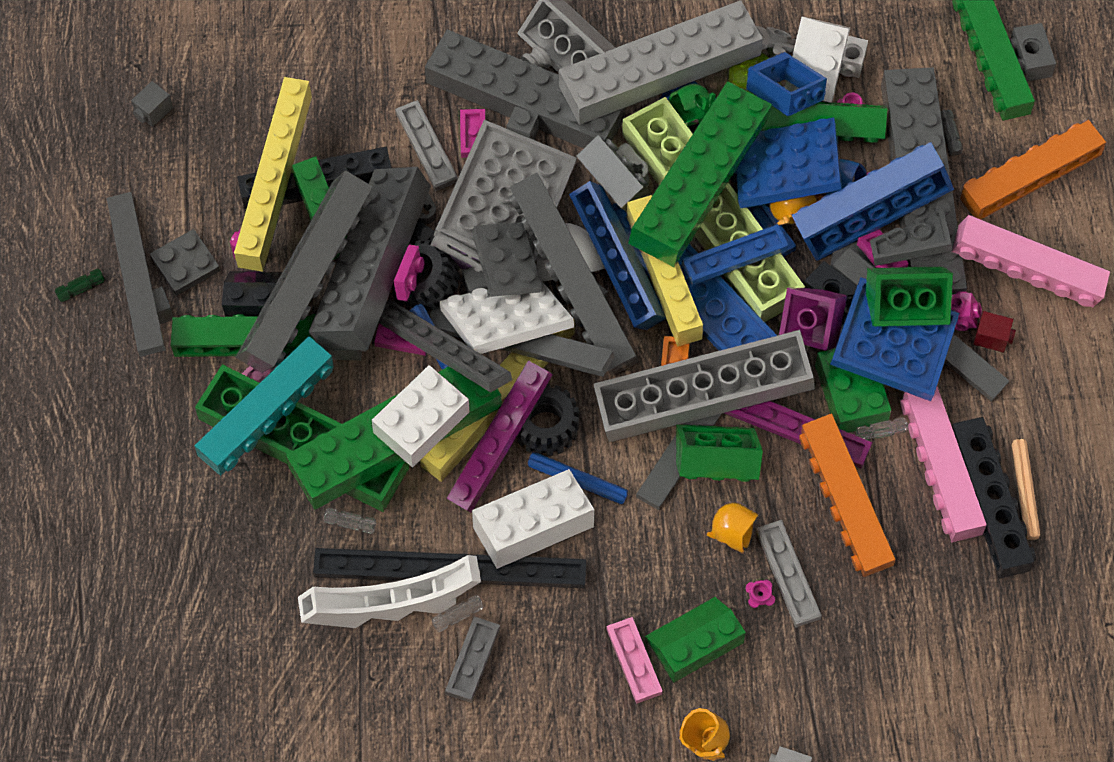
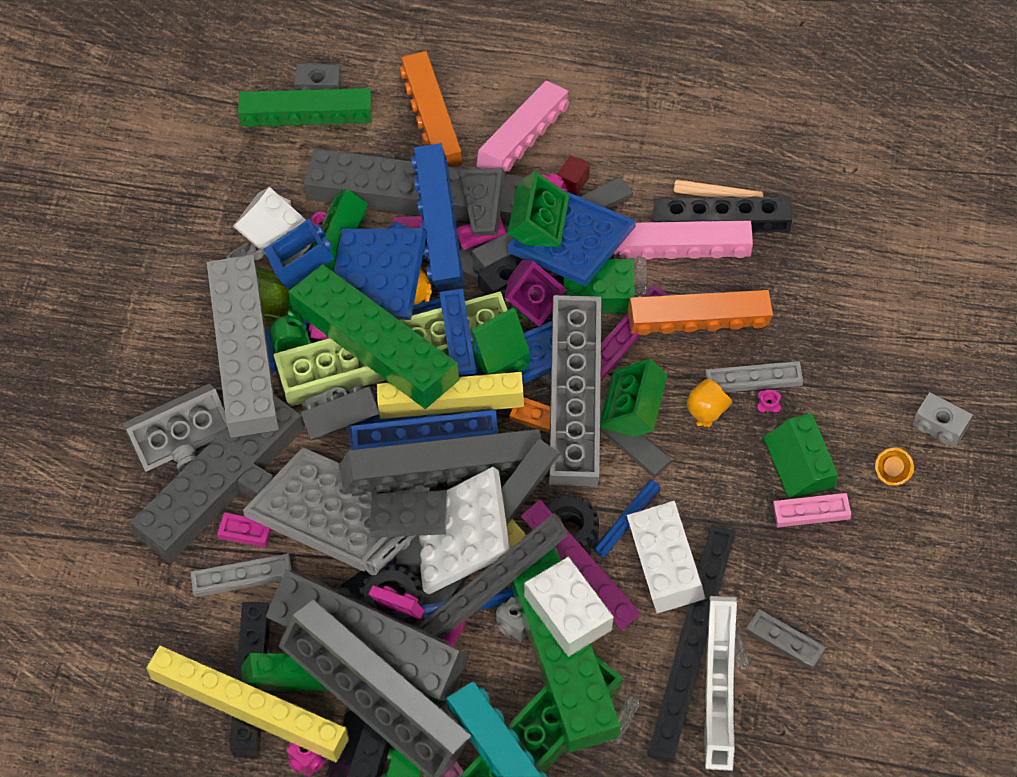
camera: 75 degrees left, 5 degrees down
(725, 297) = (500, 345): none -> green slope

